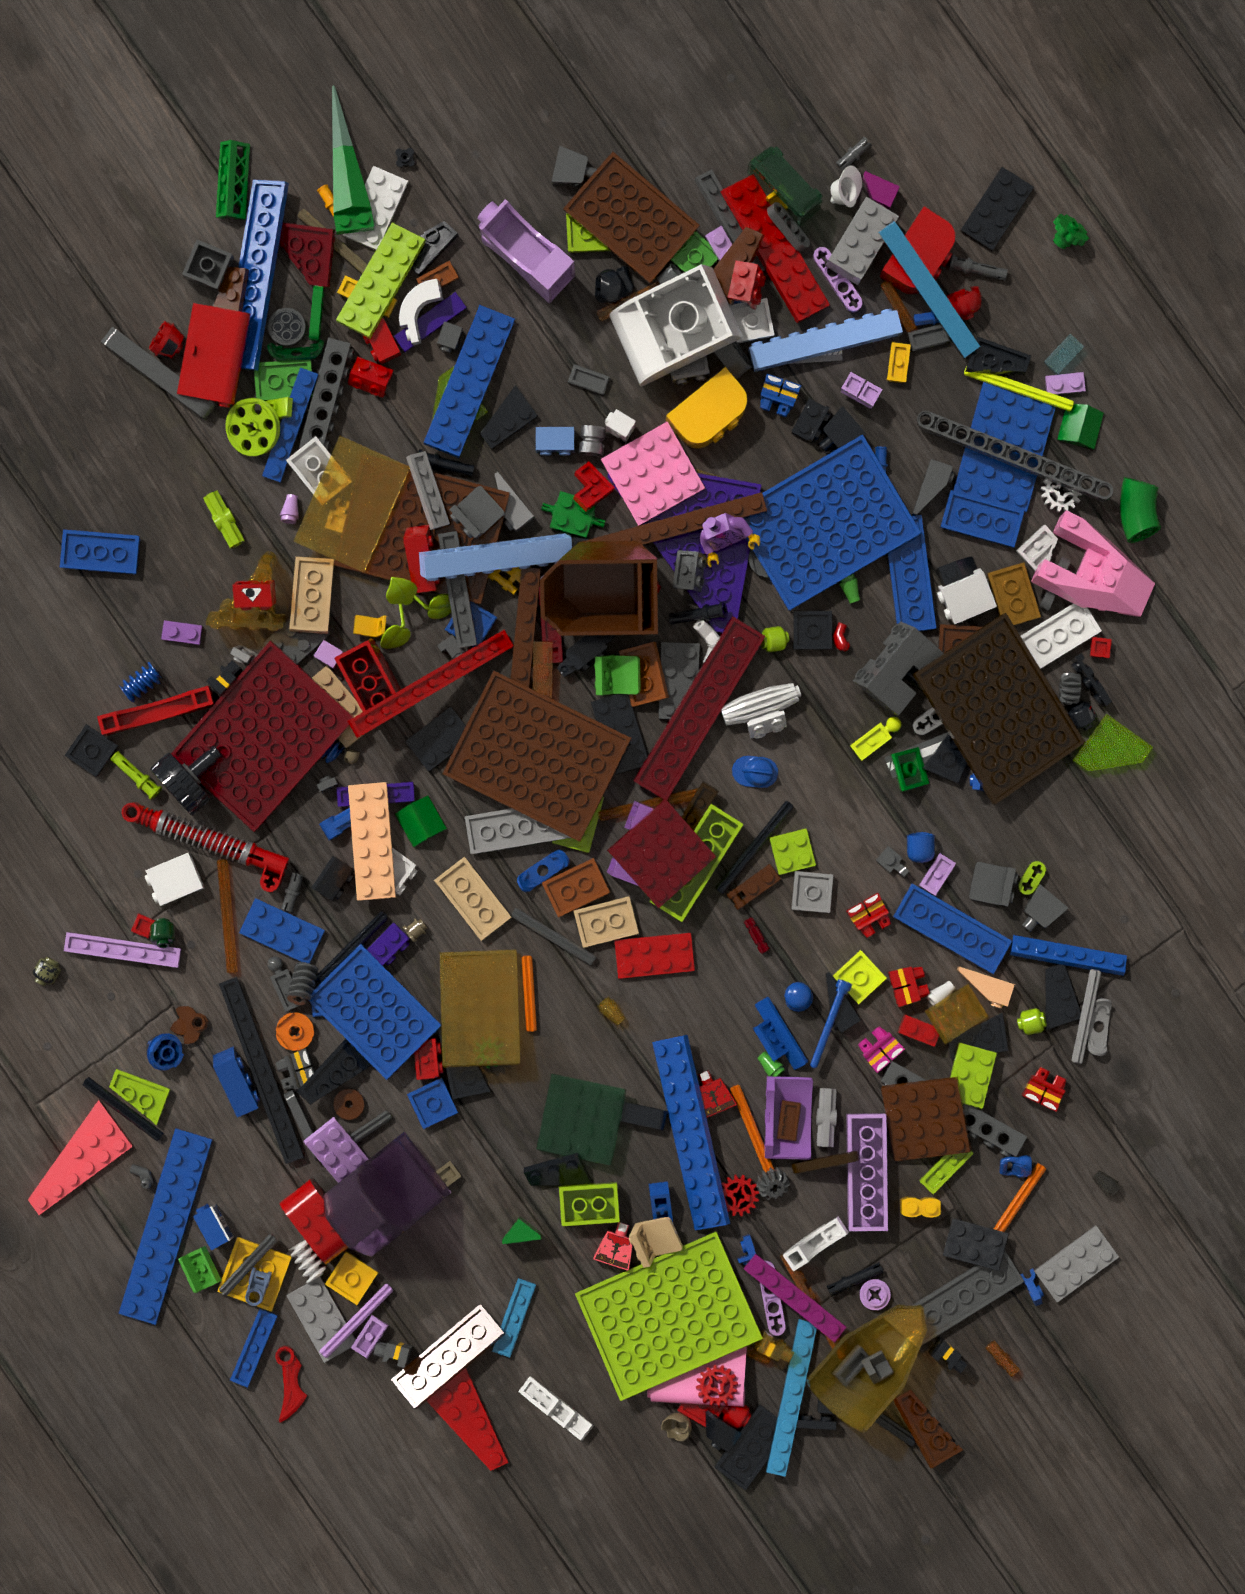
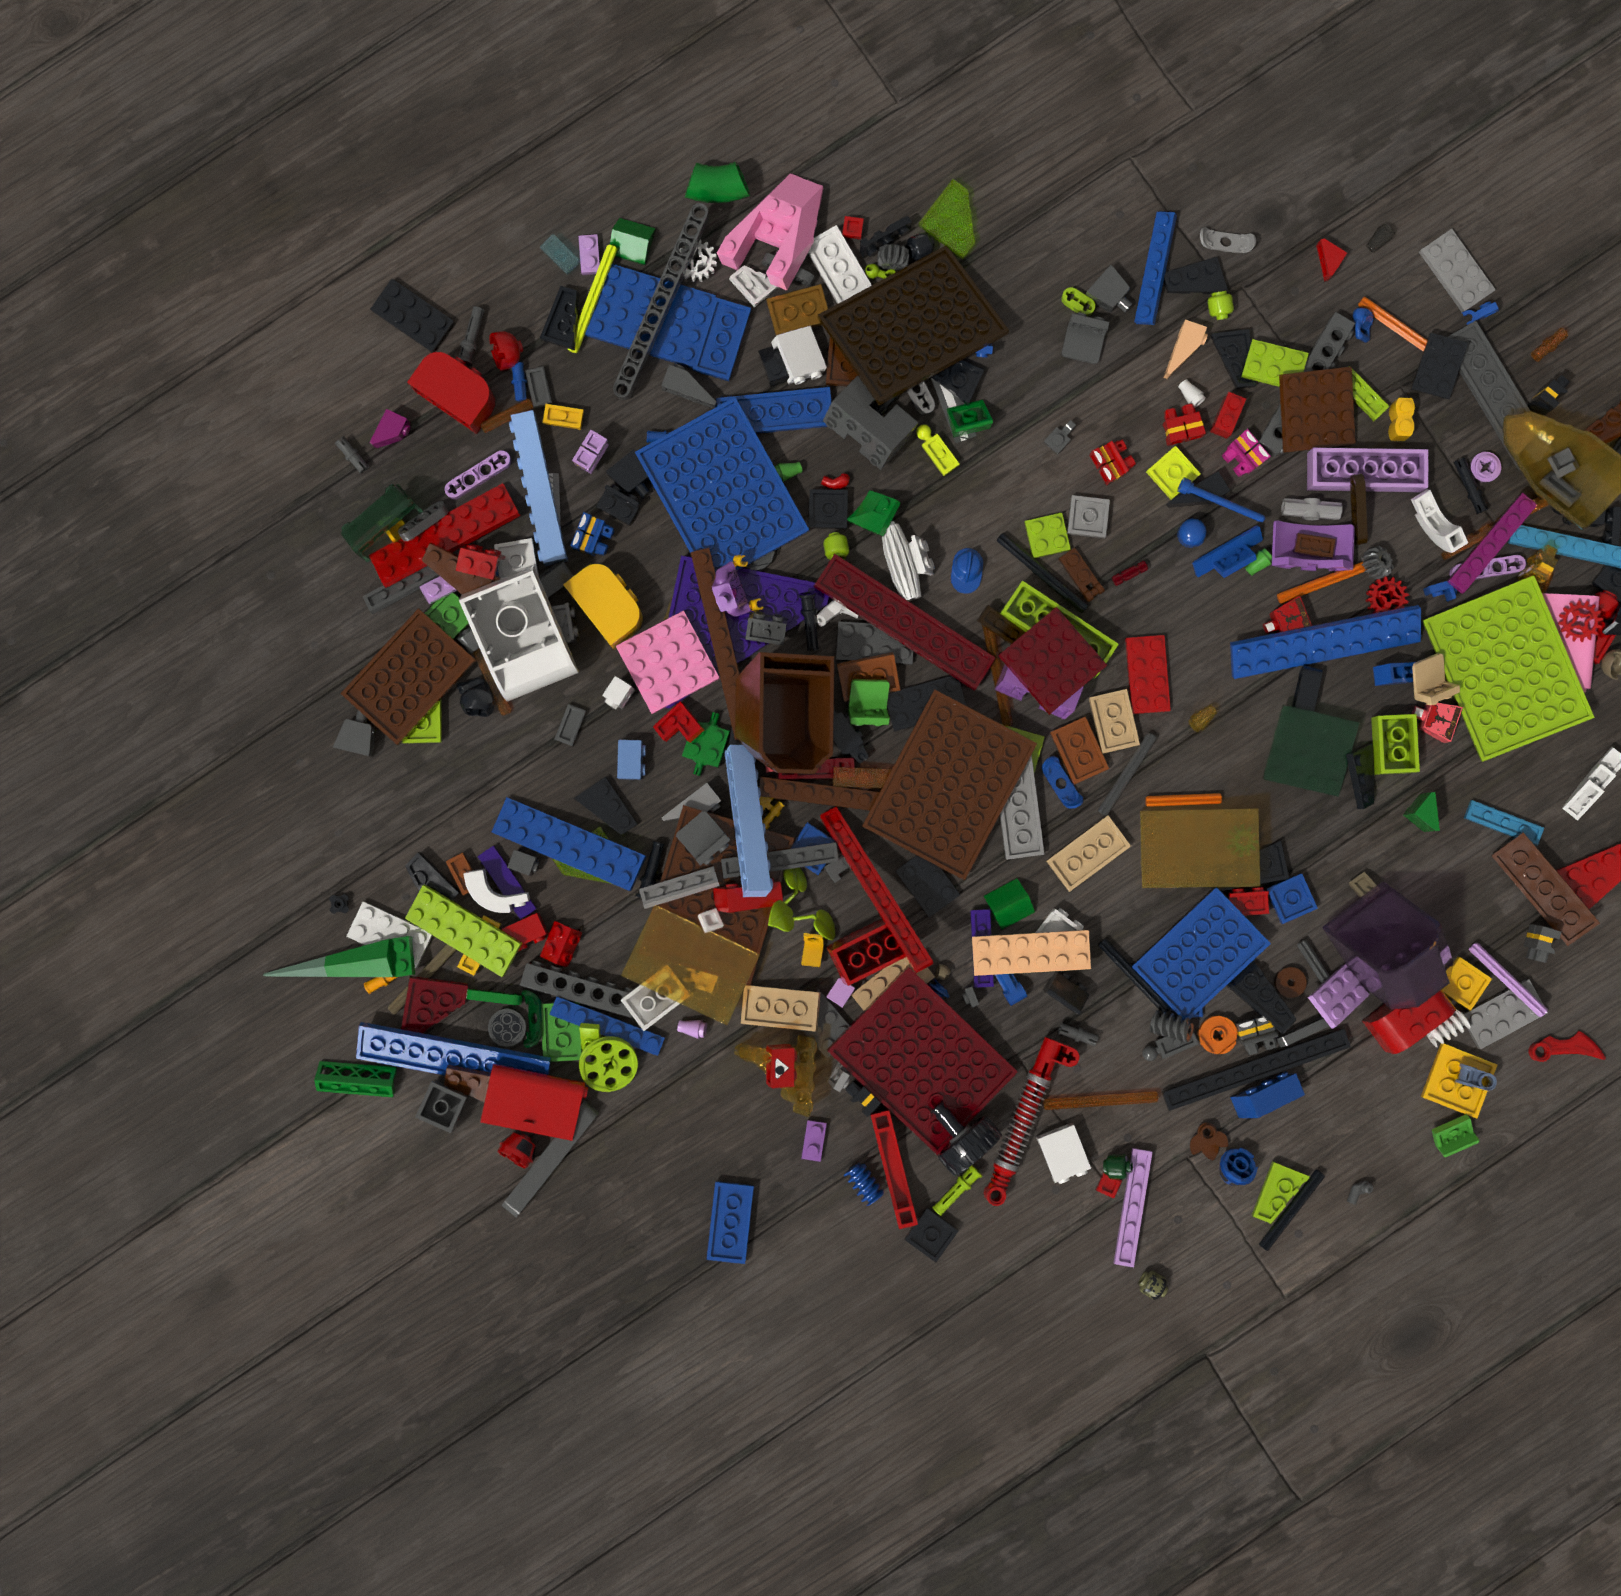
camera: 90 degrees left, 0 degrees up
(88, 1152) = (1334, 1245): coral wing -> none
(165, 1226) = (1409, 1169): blue plate -> none
(213, 1226) = (1414, 1121): blue piece -> none
(224, 519) = (701, 1095): lime piece -> none
(248, 1264) = (1452, 1087): dark grey axle -> none
(253, 1347) = (1532, 1083): blue plate -> none
(282, 931) = (1116, 1045): blue plate -> none
(370, 1336) = (1522, 966): lavender slope -> none
(389, 944) = (1132, 938): dark purple bracket -> none
(396, 522) = (710, 920): none -> white tile
(415, 929) = (1118, 911): dark tan brick -> none
(526, 250) = (437, 782): lavender brick -> none
(592, 440) = (632, 722): flat silver wheel -> none
(808, 676) = (875, 513): none -> green plate
(847, 187) = (386, 462): white piece -> none
(861, 241) = (440, 447): light grey brick -> none
(921, 847) = (1046, 408): blue helmet -> none
(929, 289) = (490, 379): dark azure tile -> none
(937, 874) = (1073, 393): lavender plate -> none
(952, 928) = (1127, 380): blue plate -> none
(956, 1013) = (1213, 377): clear yellow plate -> none
(1052, 1093) = (1290, 296): red hips -> none
(1055, 673) = (876, 272): none -> lime arm
(1069, 232) = (438, 244): green plant -> none
(1084, 1132) = (1330, 257): none -> red slope
(1086, 1016) = (1216, 251): light grey axle -> none

